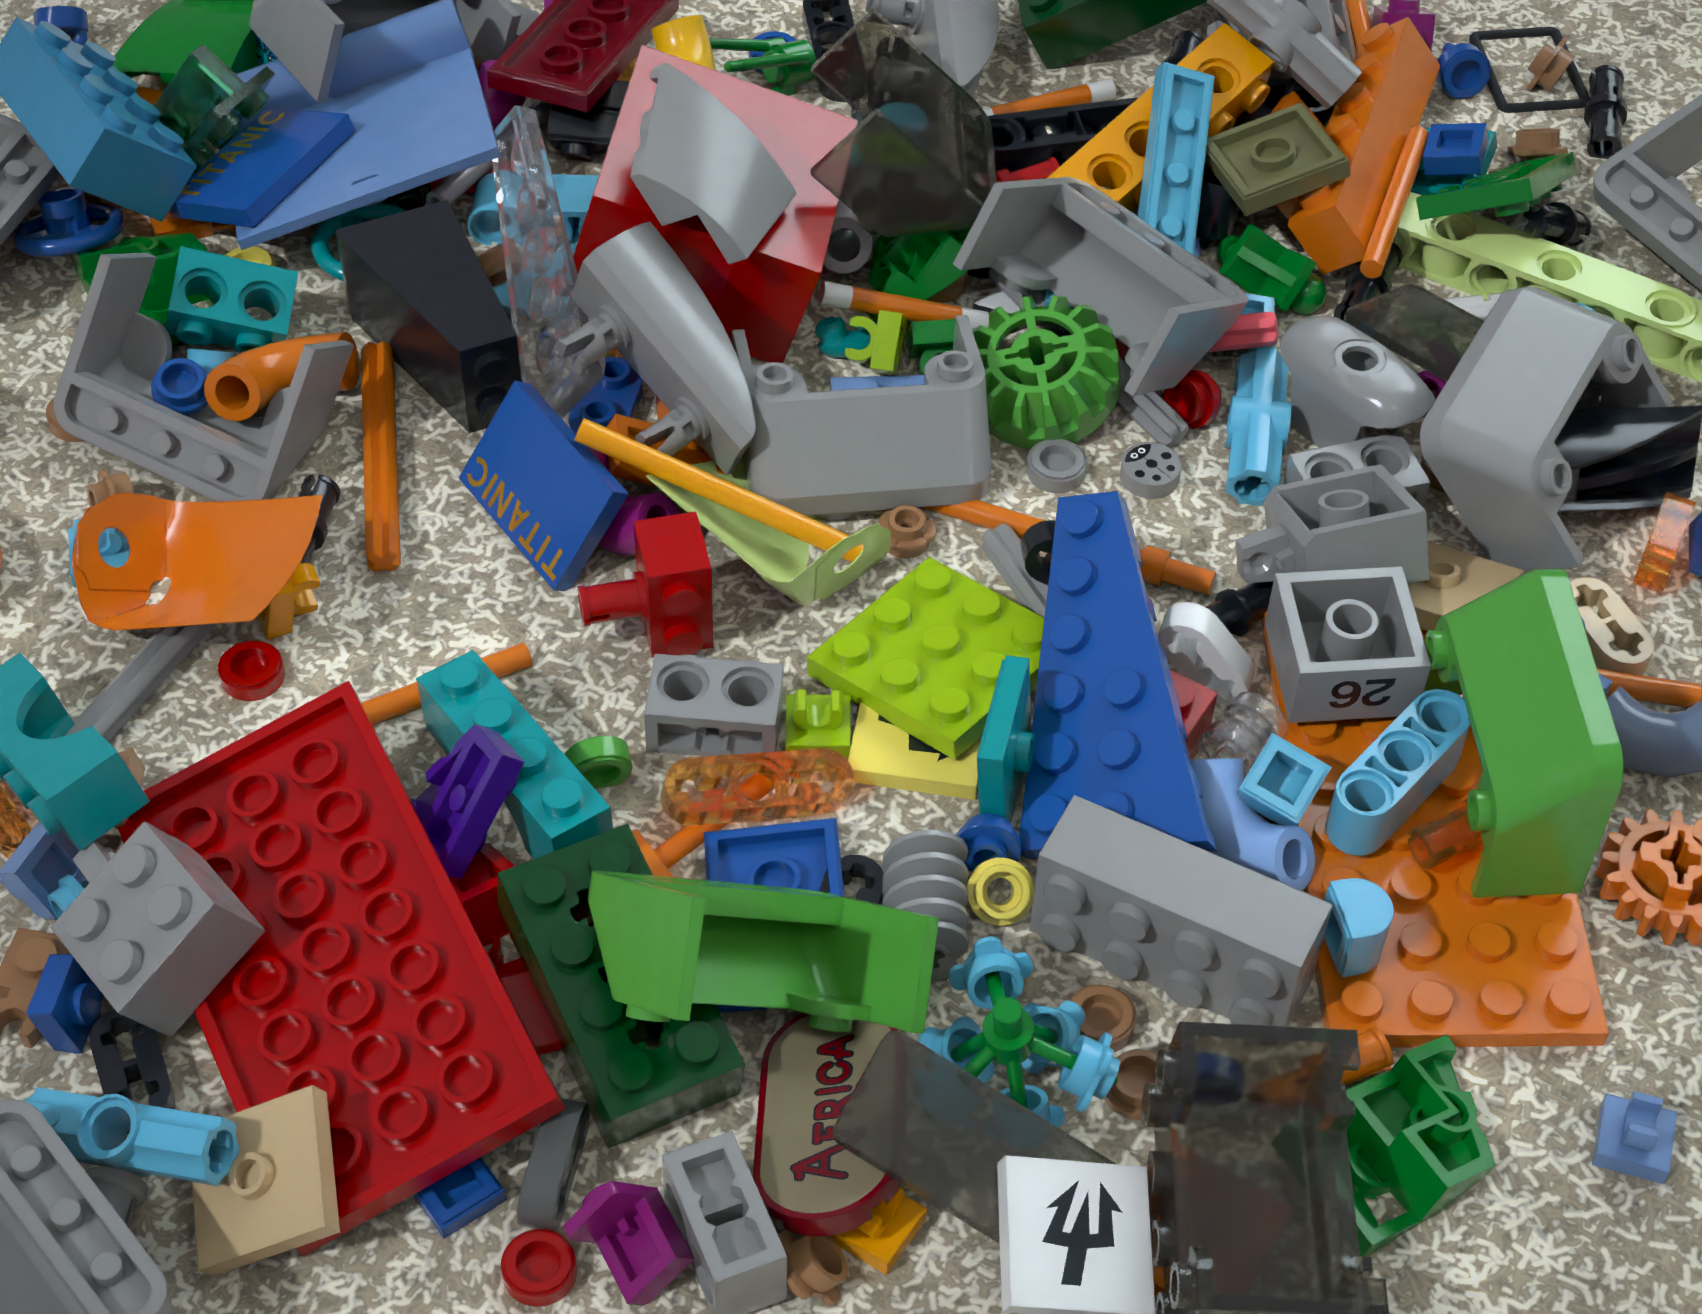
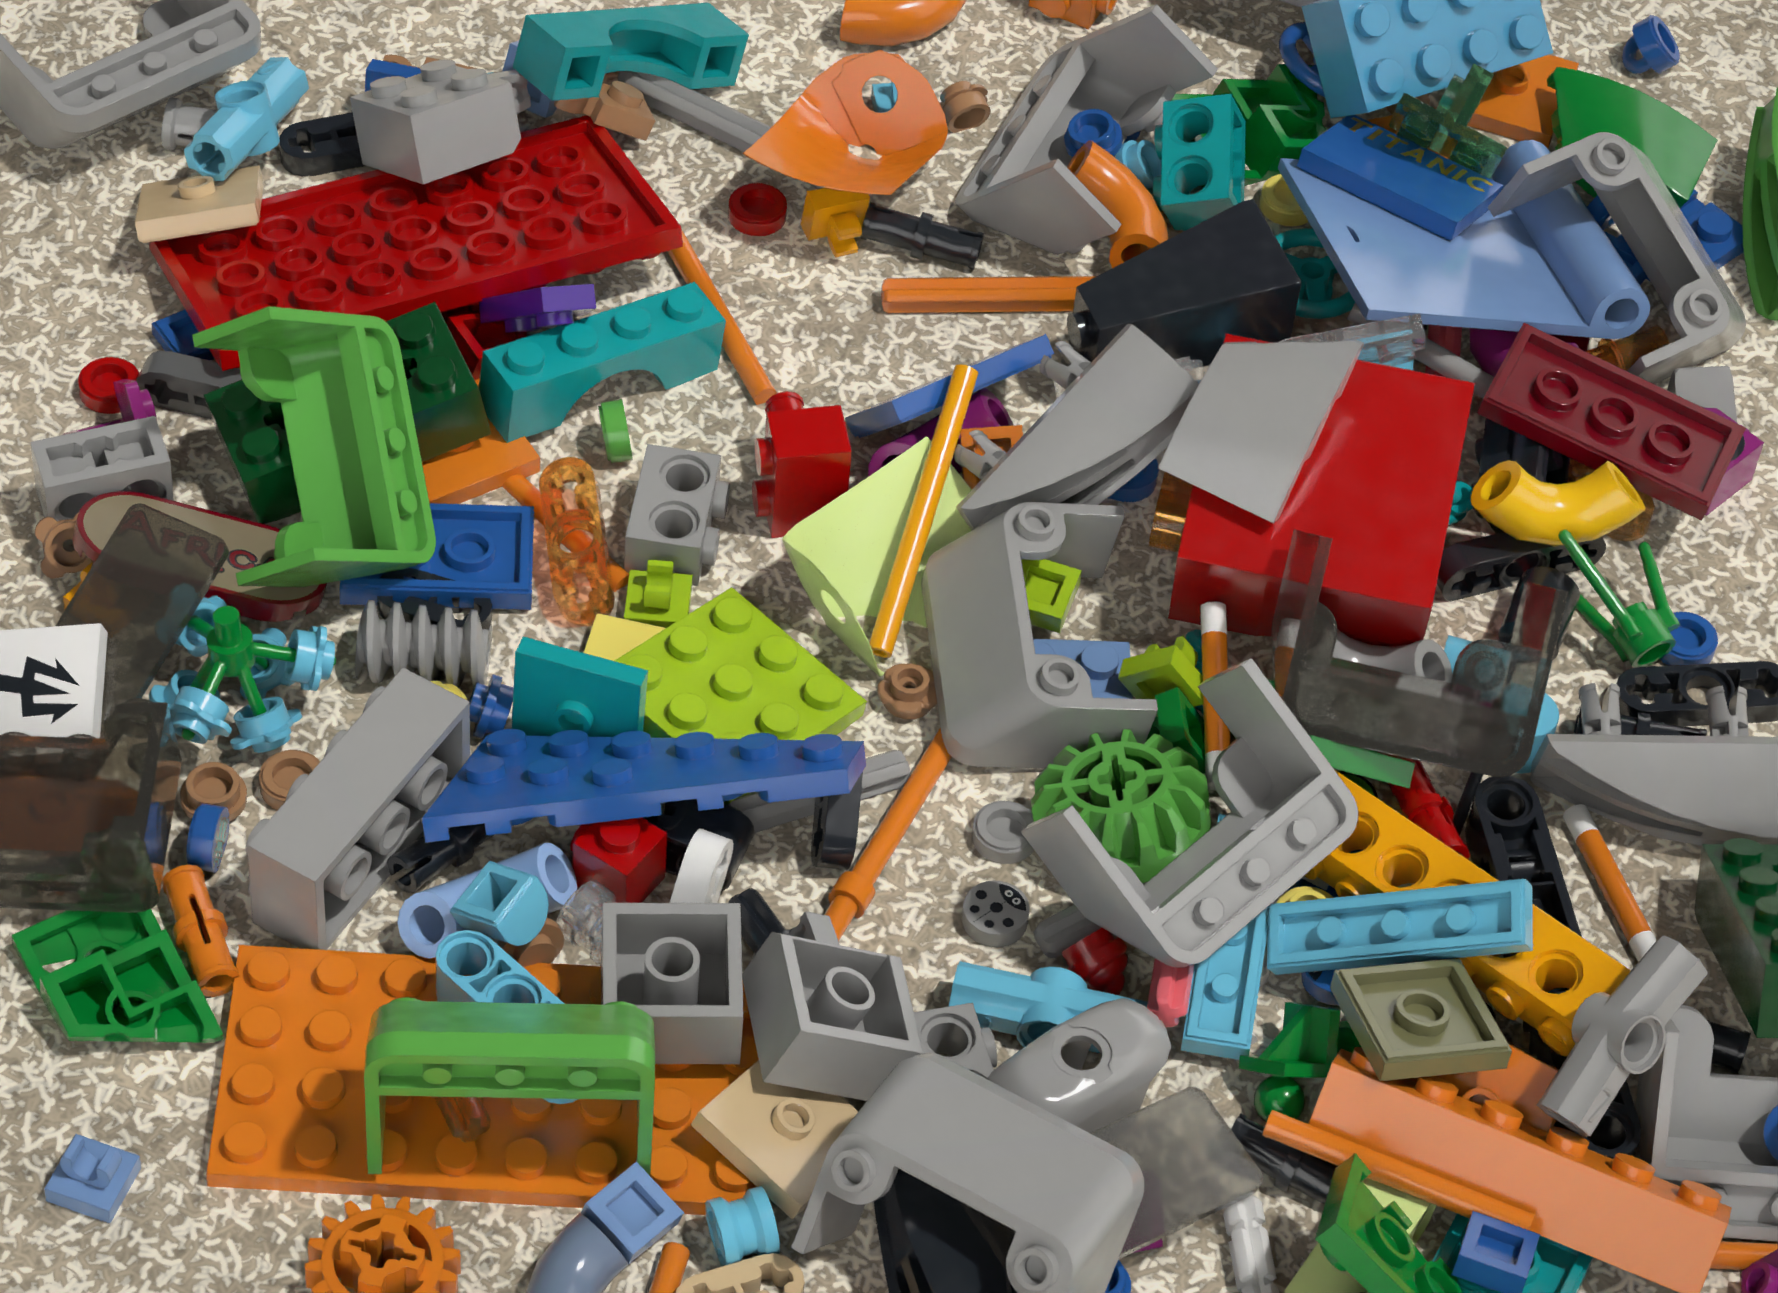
camera: 90 degrees right, 0 degrees up
(1357, 924) = (328, 947): medium azure brick -> none

